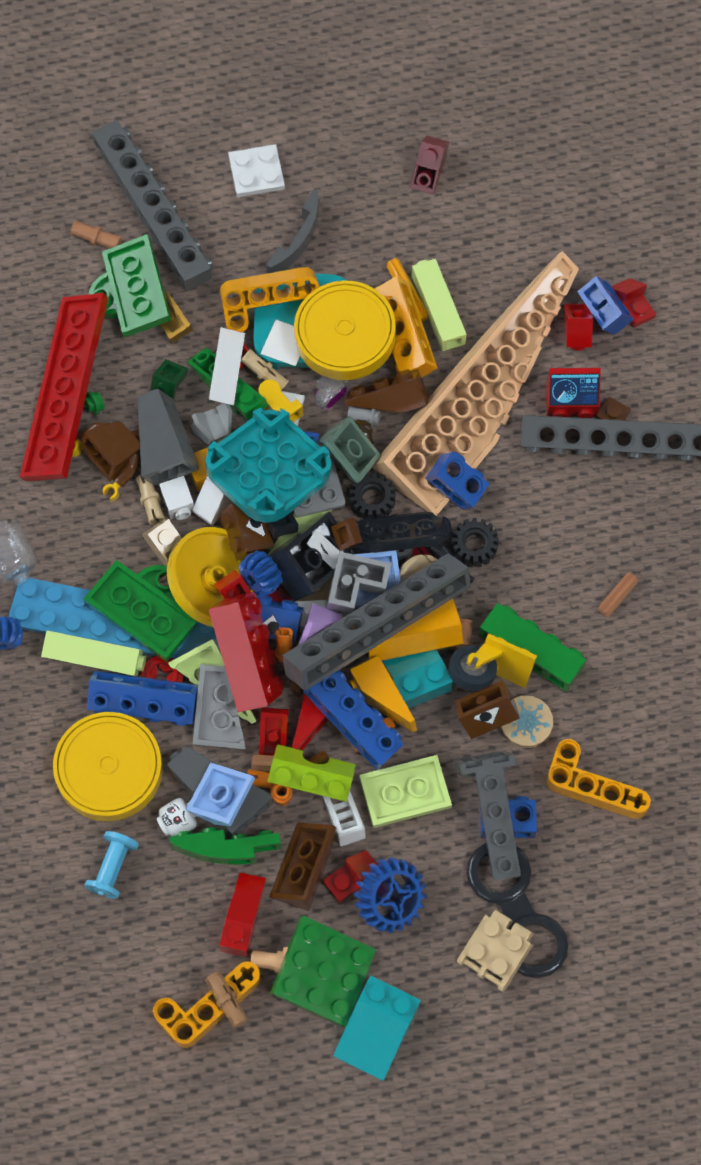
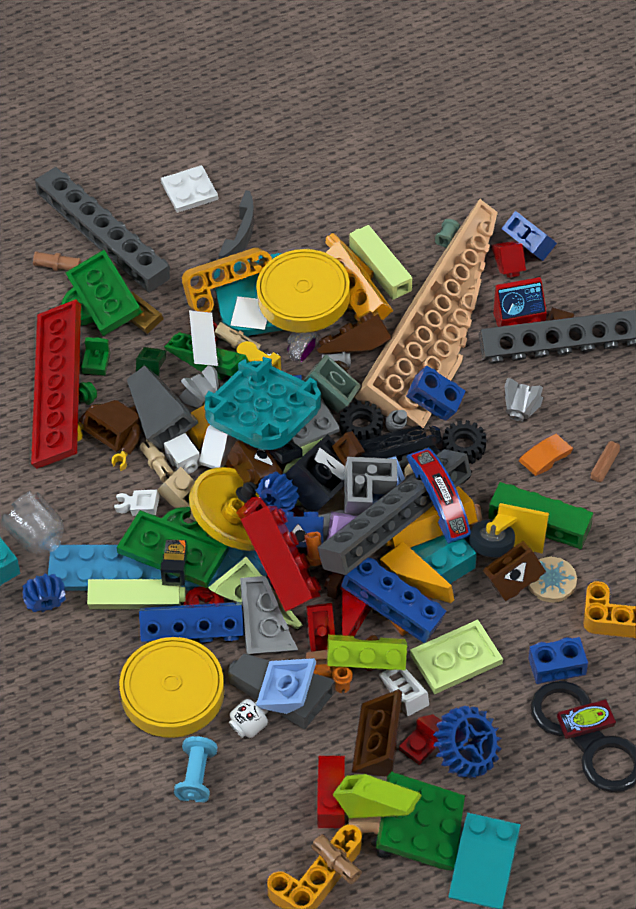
camera: 10 degrees left, 15 degrees down
(112, 362) = (96, 356): none -> green bracket
(123, 546) = (141, 500): none -> white plate
(137, 631) = (174, 562): none -> black leg
(213, 847) = (290, 737): green slope -> none
(230, 562) = (246, 492): none -> black piece
(278, 946) = (371, 797): none -> lime slope
(408, 503) = (396, 420): none -> light grey cylinder
(428, 610) = (442, 493): none -> slope
(429, 164) = (343, 157): dark red slope -> none
(494, 808) = (545, 649): dark grey bracket -> none
(497, 949) = (579, 771): tan plate -> none
(519, 281) = (448, 231): none -> sand green bush
(519, 892) = (586, 719): none -> tile
(546, 505) = (522, 399): none -> light grey brick
(557, 573) = (544, 454): none -> orange slope
(632, 295) = (551, 226): red slope -> none

